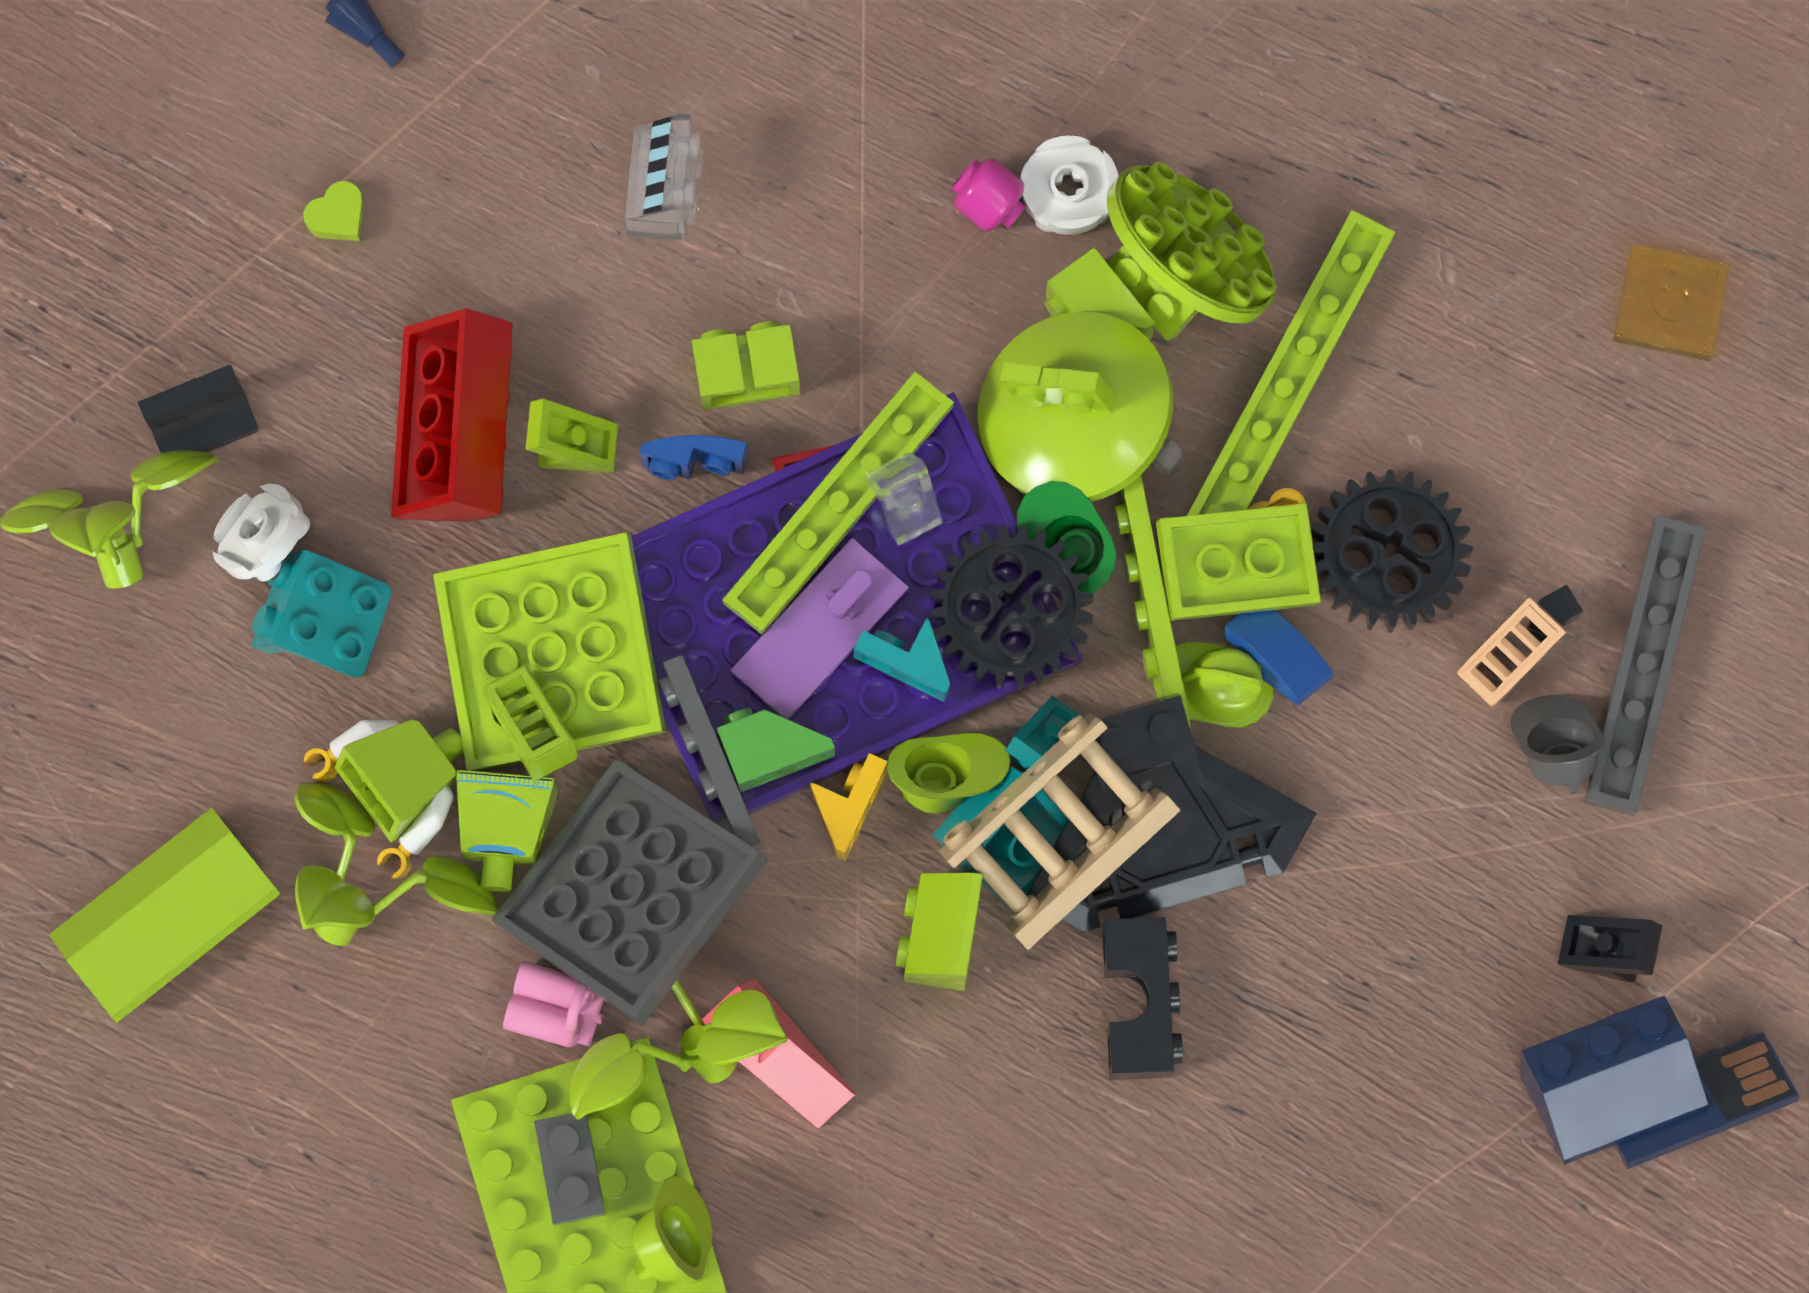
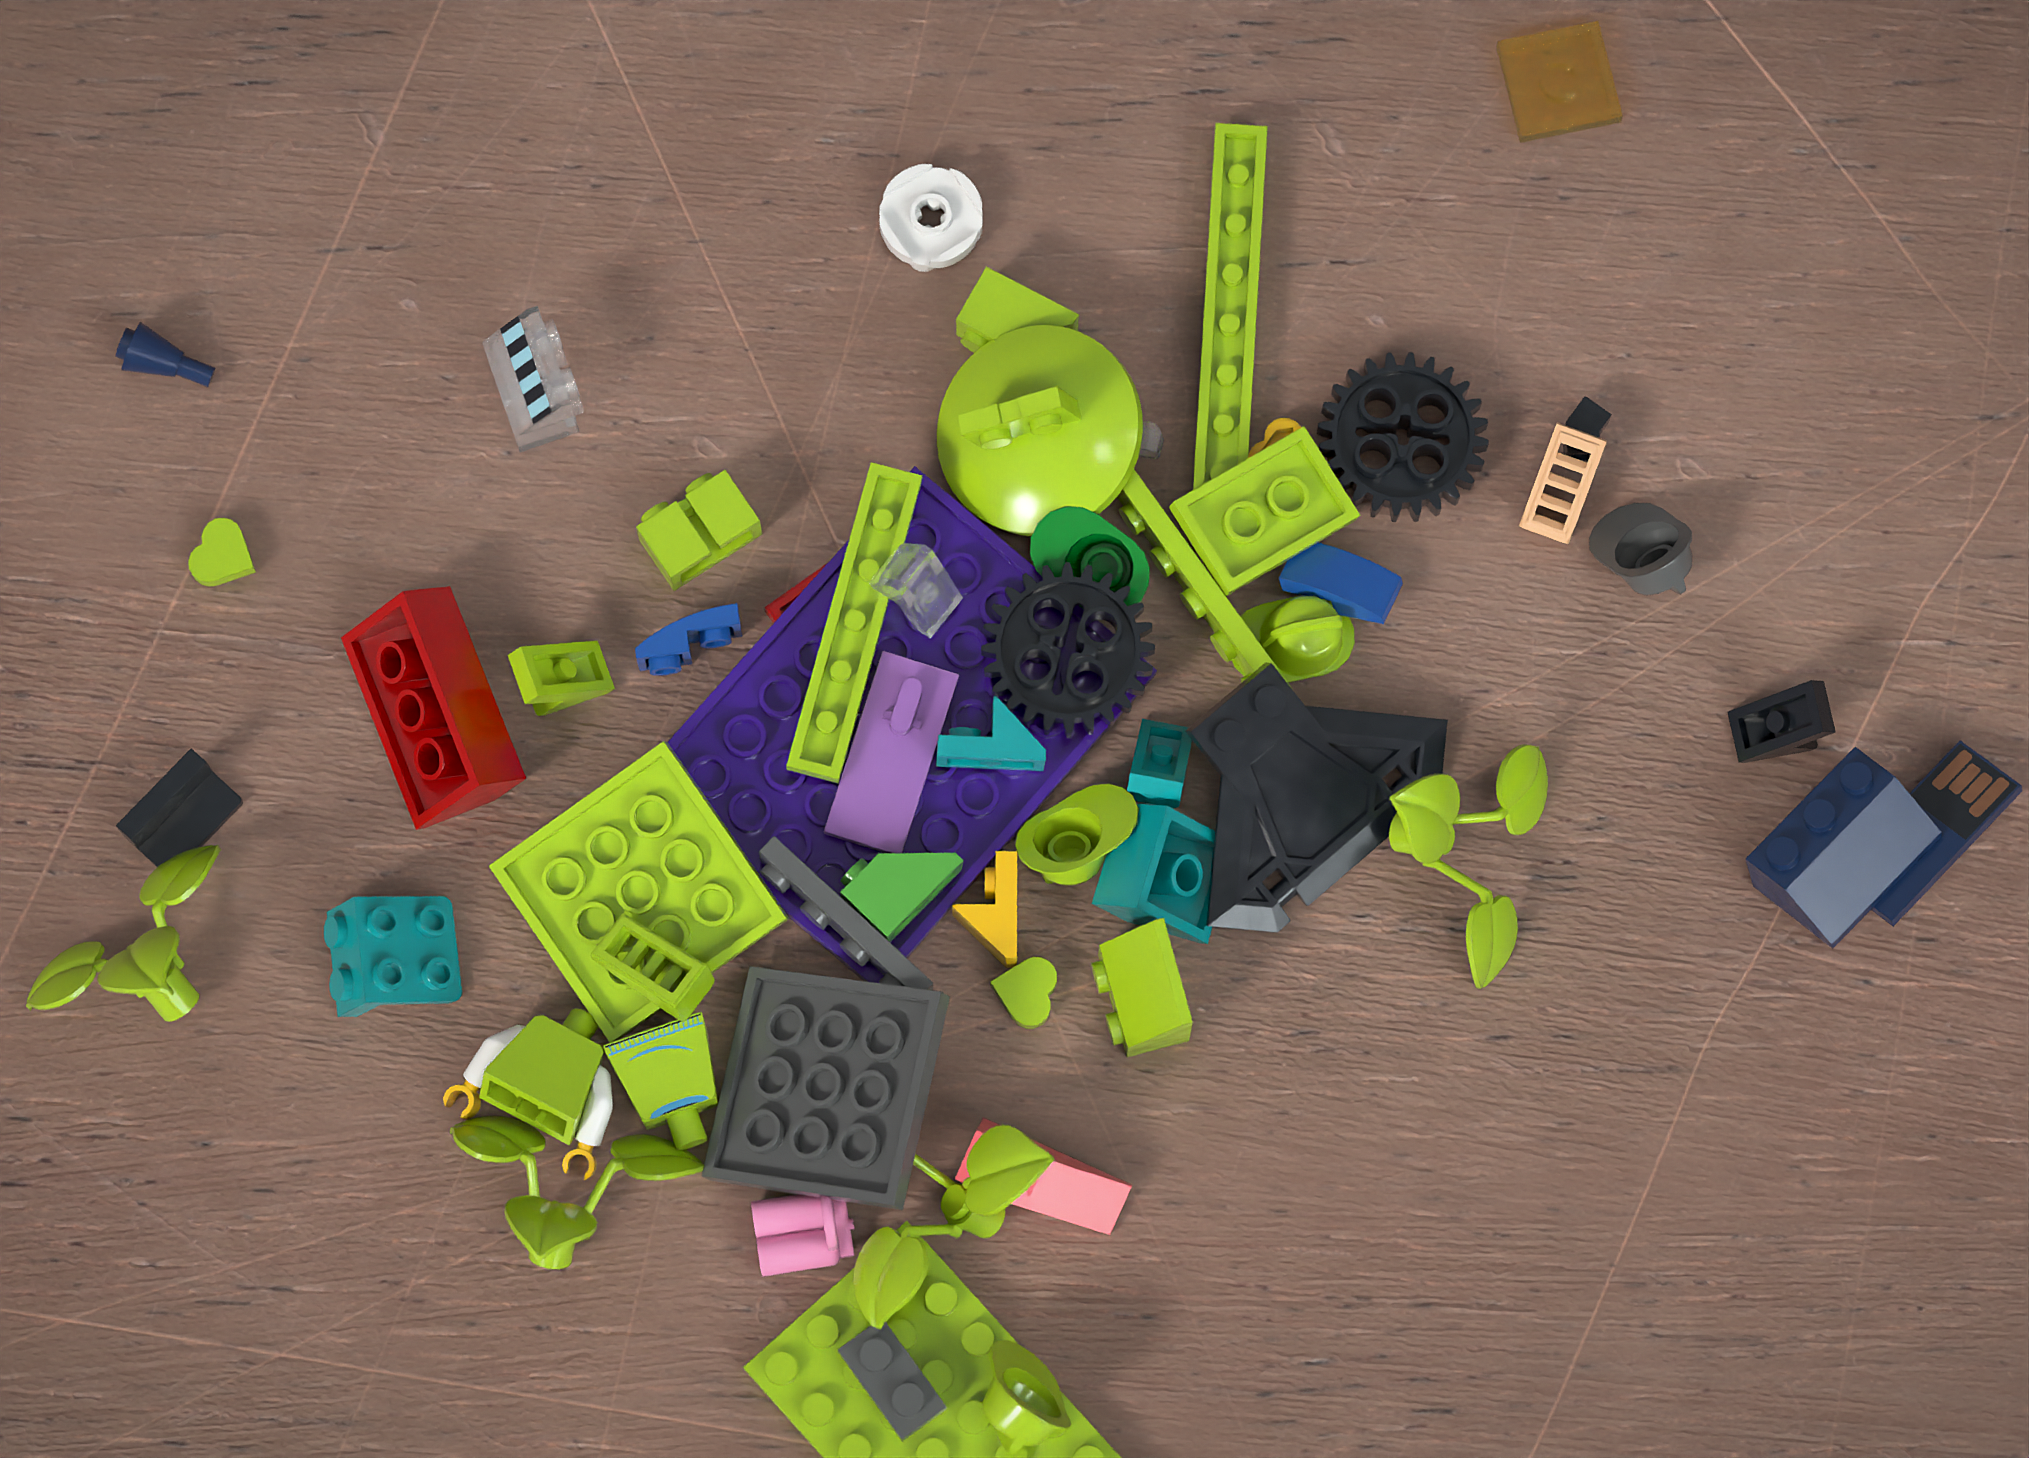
camera: 25 degrees left, 0 degrees up
(164, 915) = (378, 1314): lime slope -> none
(259, 554) = (315, 883): white plate -> none
(843, 885) = (1026, 991): none -> lime tile
(989, 194) = (857, 258): dark pink head -> none
(1106, 845) = (1266, 838): tan fence -> none
(1142, 953) = (1345, 928): black arch -> none
(1184, 253) = (1075, 236): lime bracket -> none
(1250, 901) = (1426, 831): none -> lime plant
(1645, 664) = (1692, 439): dark grey plate -> none

